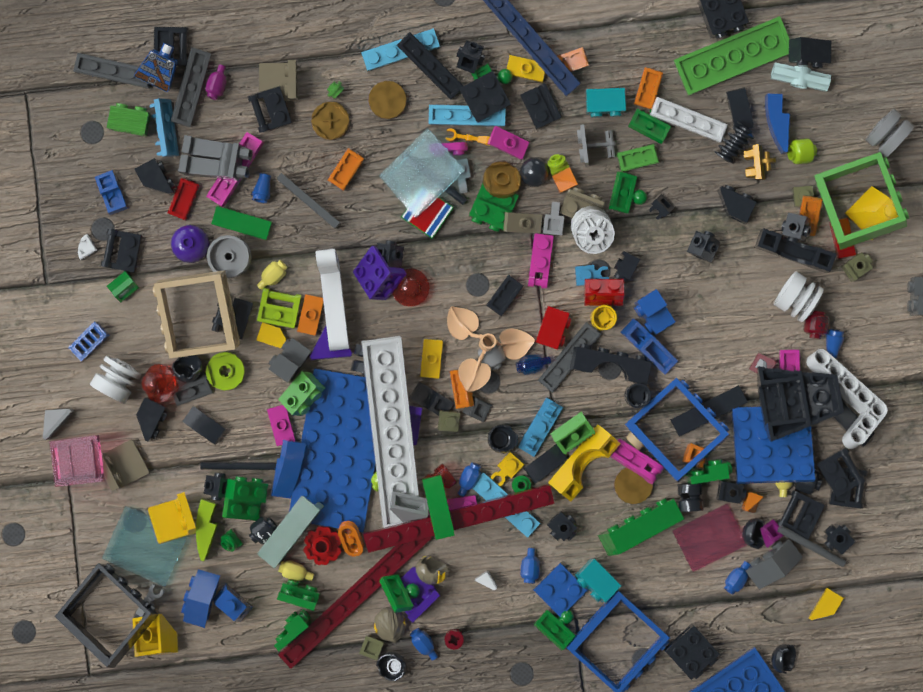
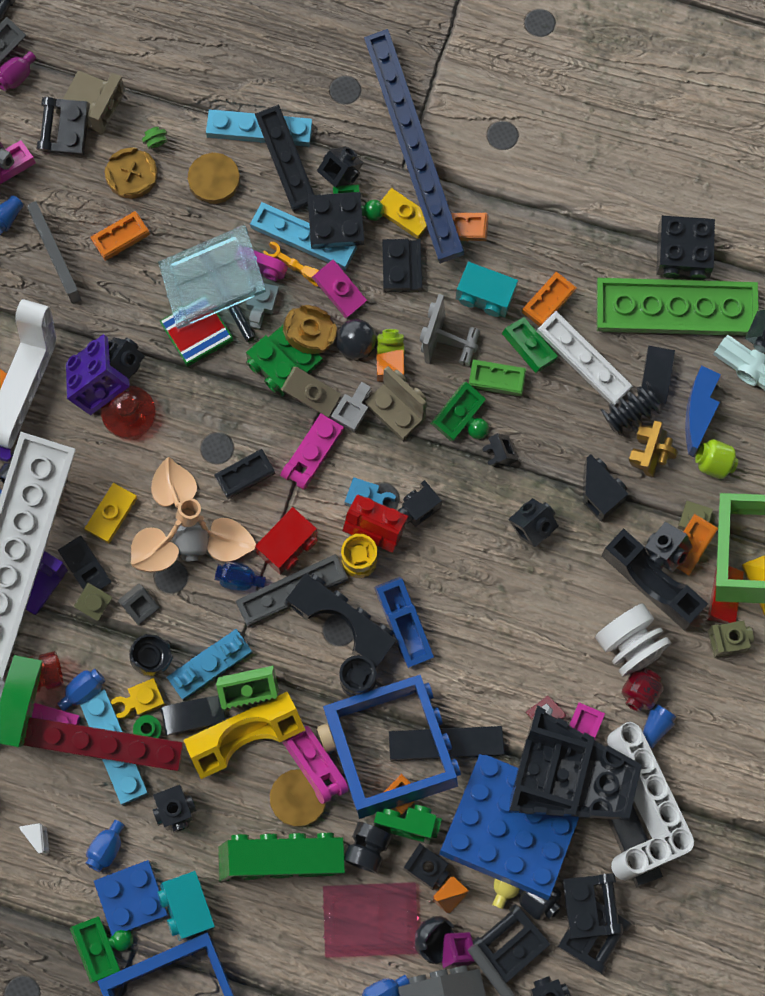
camera: 30 degrees right, 15 degrees down
(461, 396) = (126, 576): orange plate -> none
(588, 220) = (412, 435): white wheel -> none
(654, 312) = (429, 570): blue brick -> none

